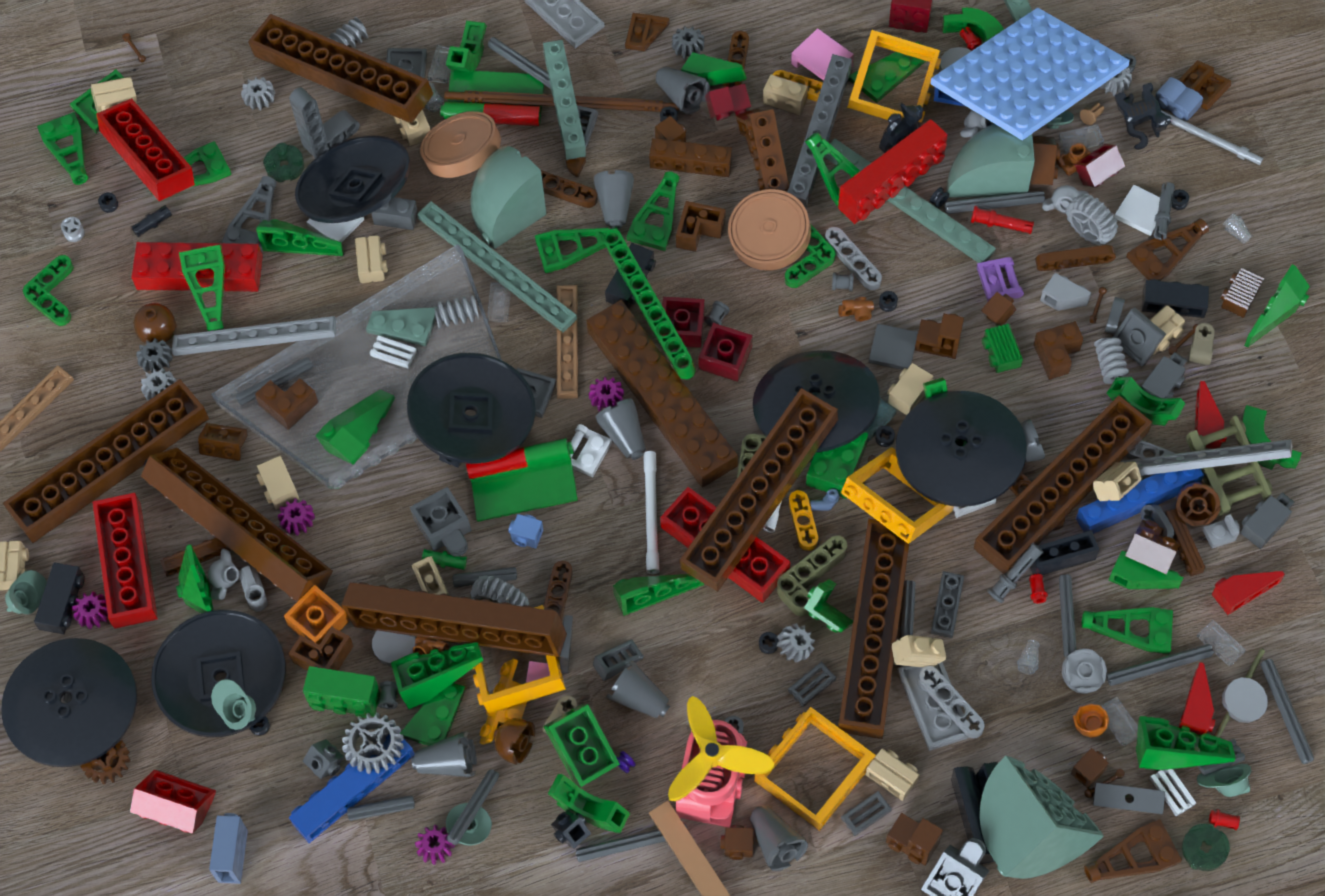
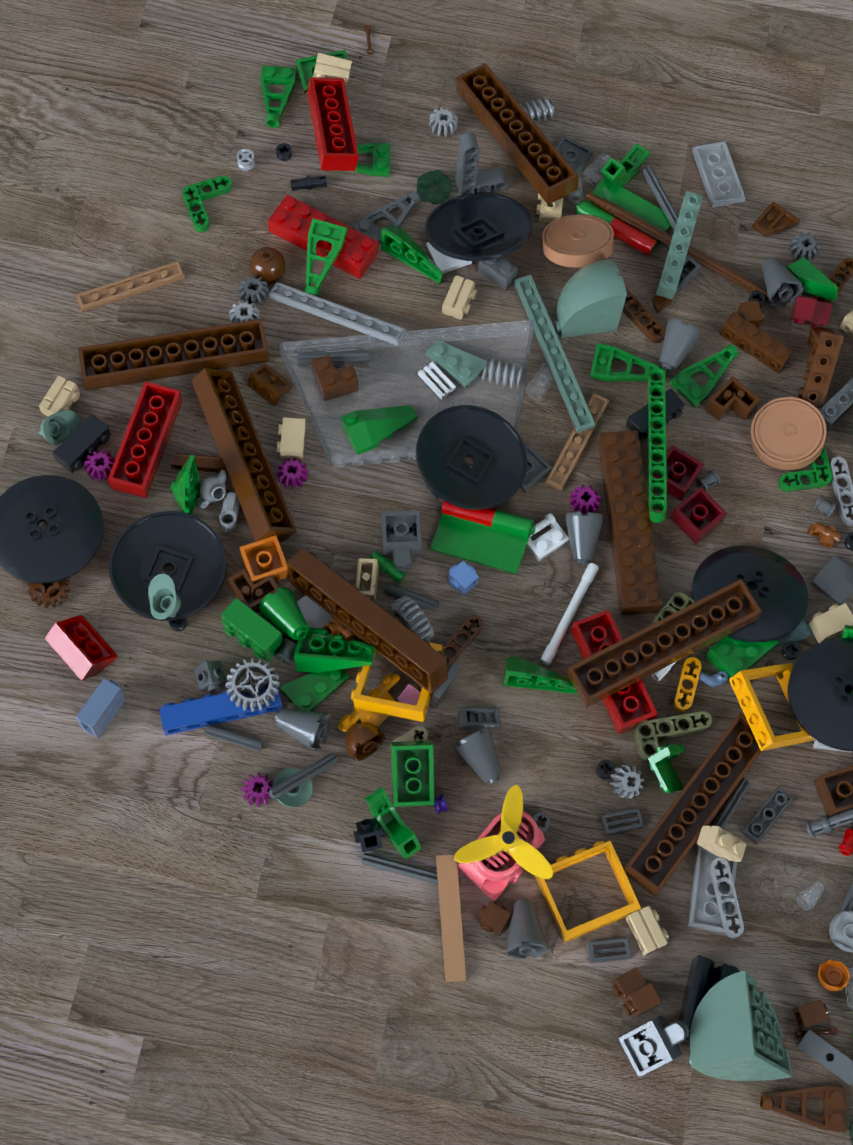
camera: 20 degrees right, 5 degrees up
(366, 657) = (284, 613): none -> green cone

